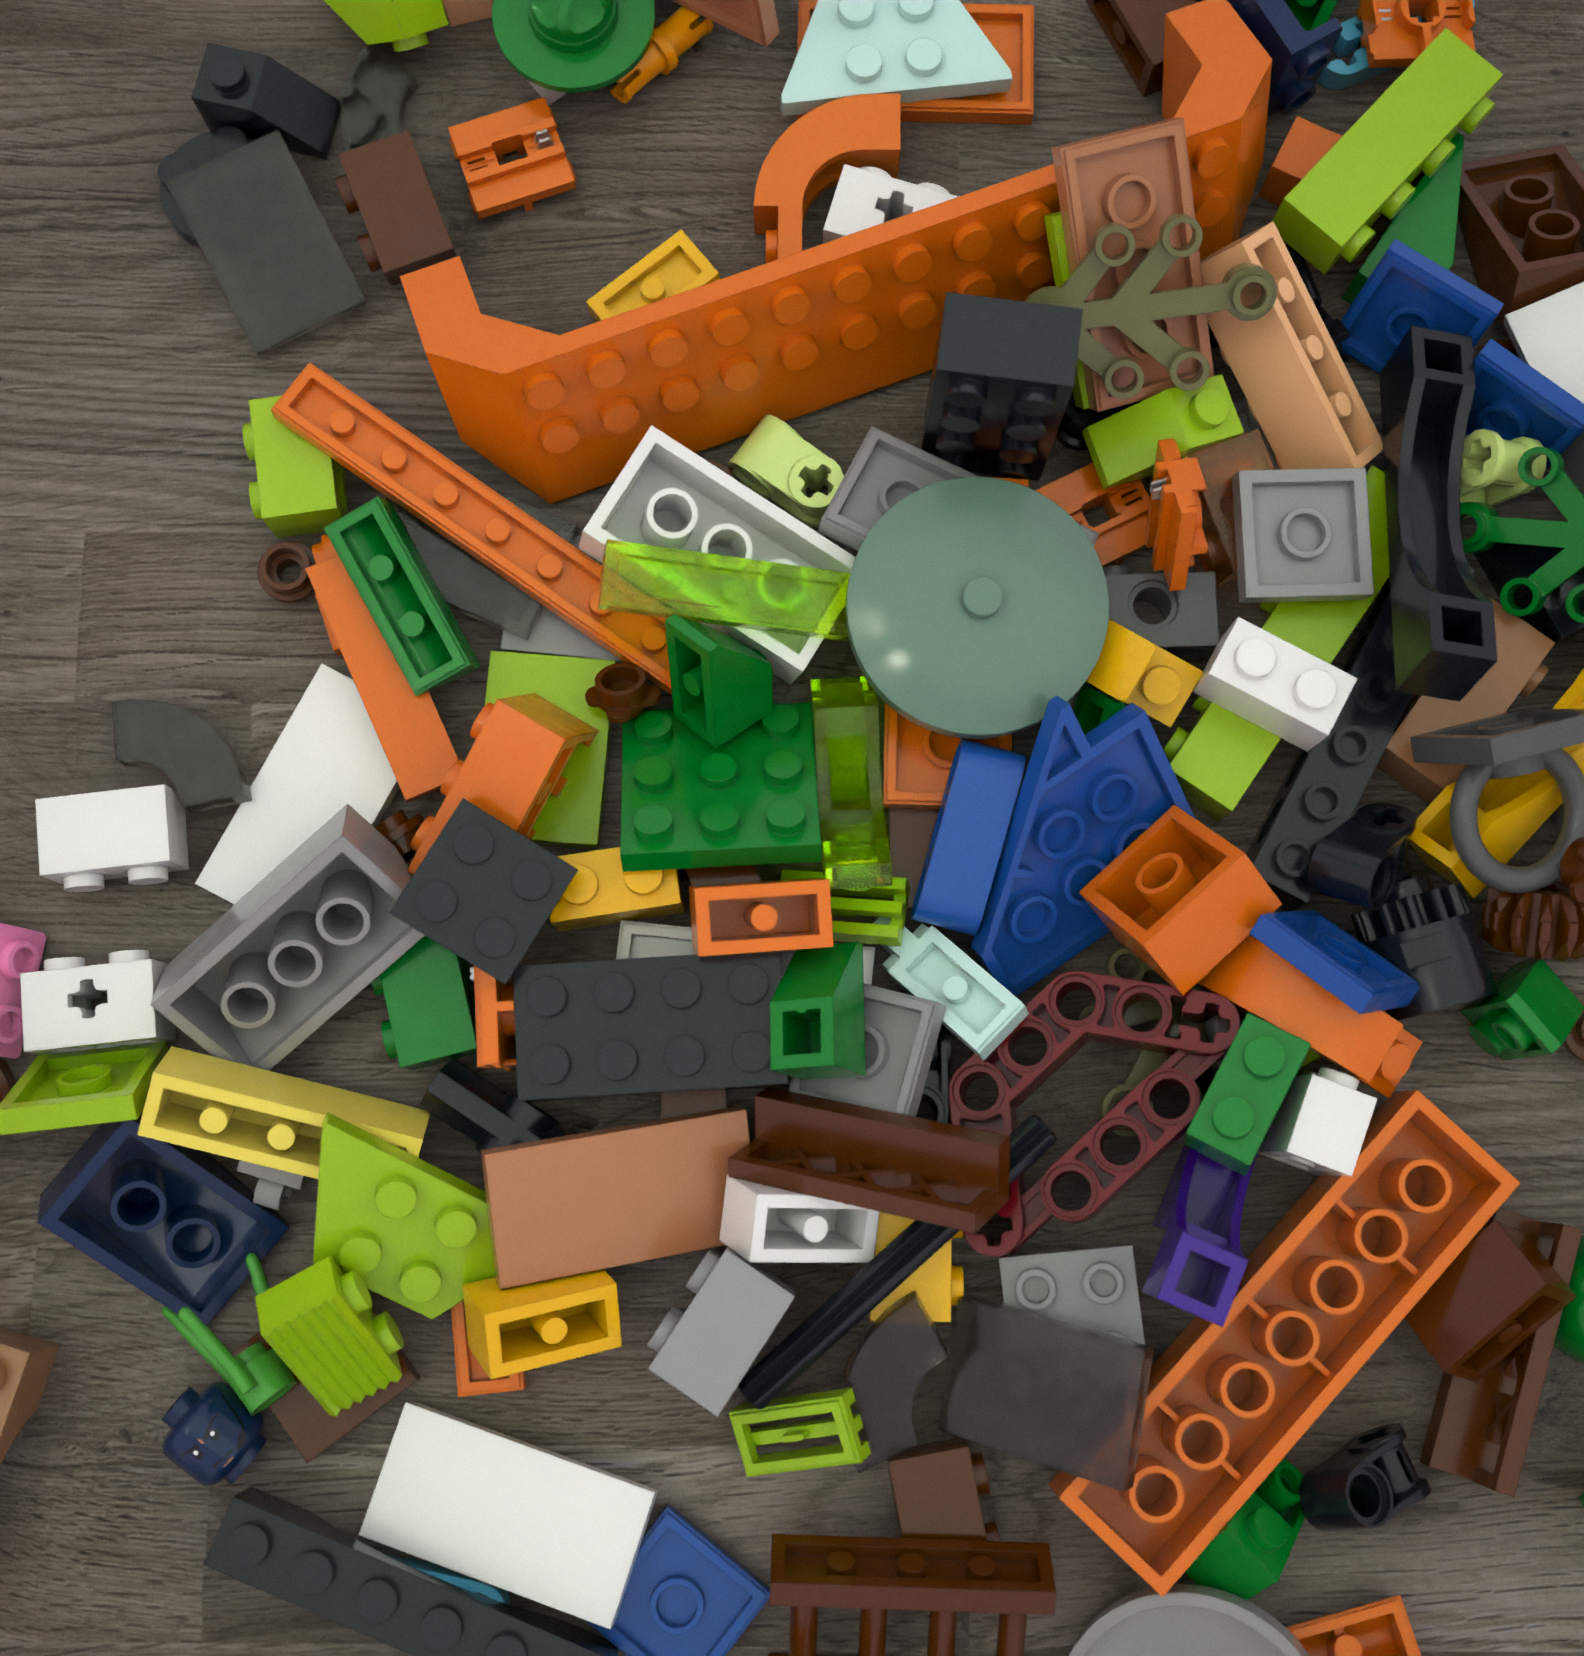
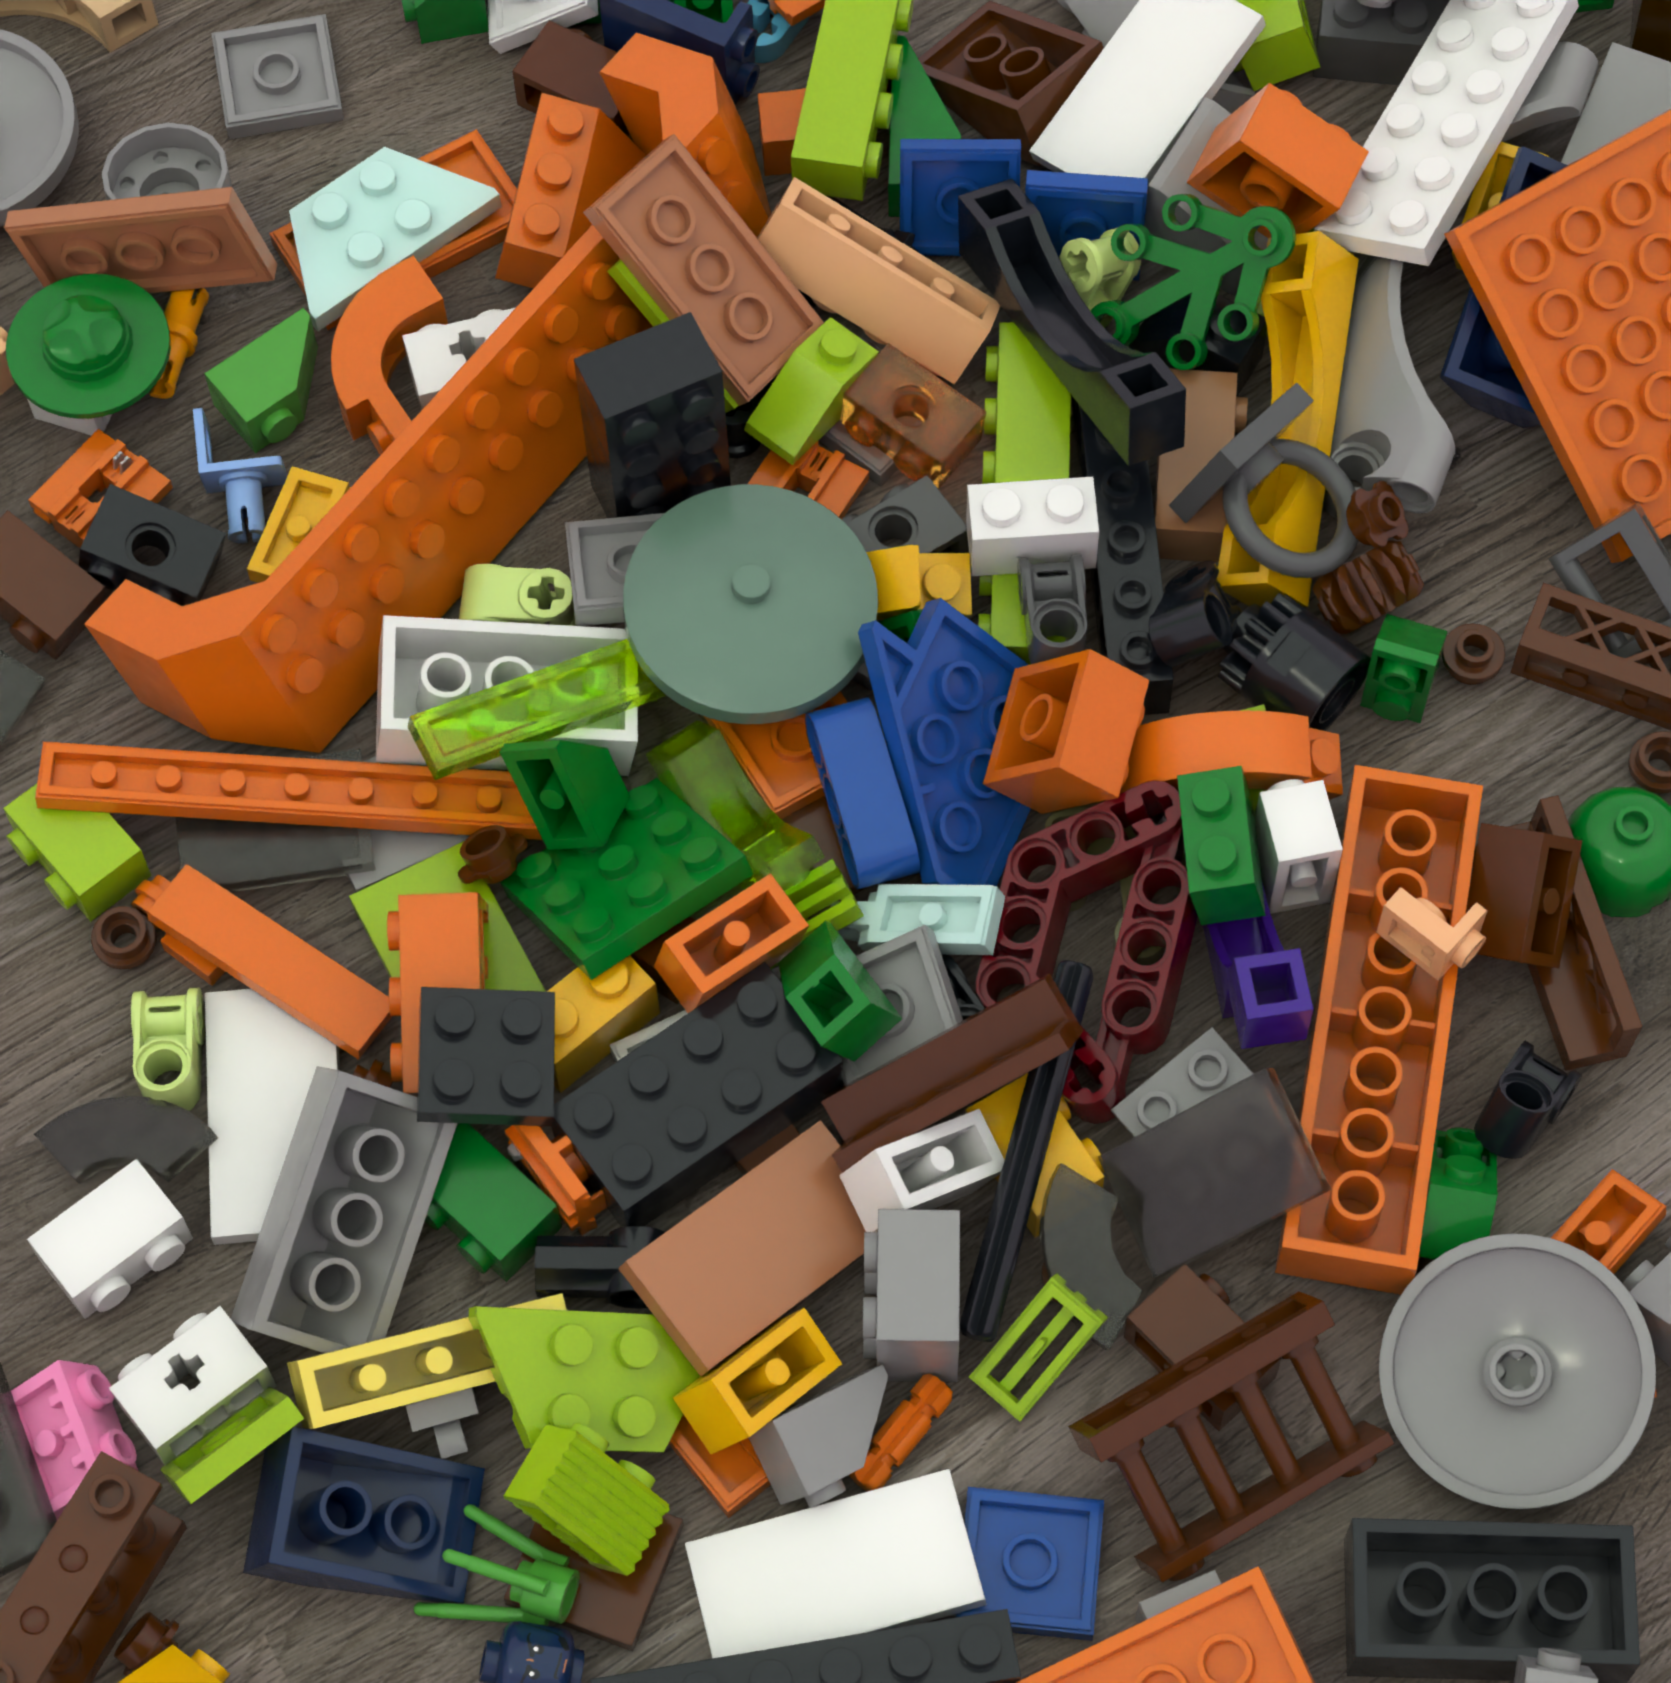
camera: 30 degrees left, 15 degrees down
(262, 688) = (168, 1038): none -> yellowish green piece
(402, 596) = (248, 885): green slope -> none
(503, 201) = (131, 522): none -> black brick
(574, 1398) = (821, 1439): none -> light grey slope
(631, 216) = (239, 480): none -> light blue bracket
(638, 1423) = (903, 1431): none -> orange axle
(713, 138) = (267, 382): none -> bright green slope
(1084, 91) = (567, 166): none -> orange slope
(1135, 305) = (727, 298): olive plant -> none
(1175, 514) = (864, 444): orange piece -> none
(1247, 767) = (1053, 604): none -> dark grey piece
(1302, 535) = (978, 402): light grey tile -> none
(1335, 960) = (1220, 697): blue tile -> none
(1372, 1299) = (1425, 936): none -> light nougat bracket

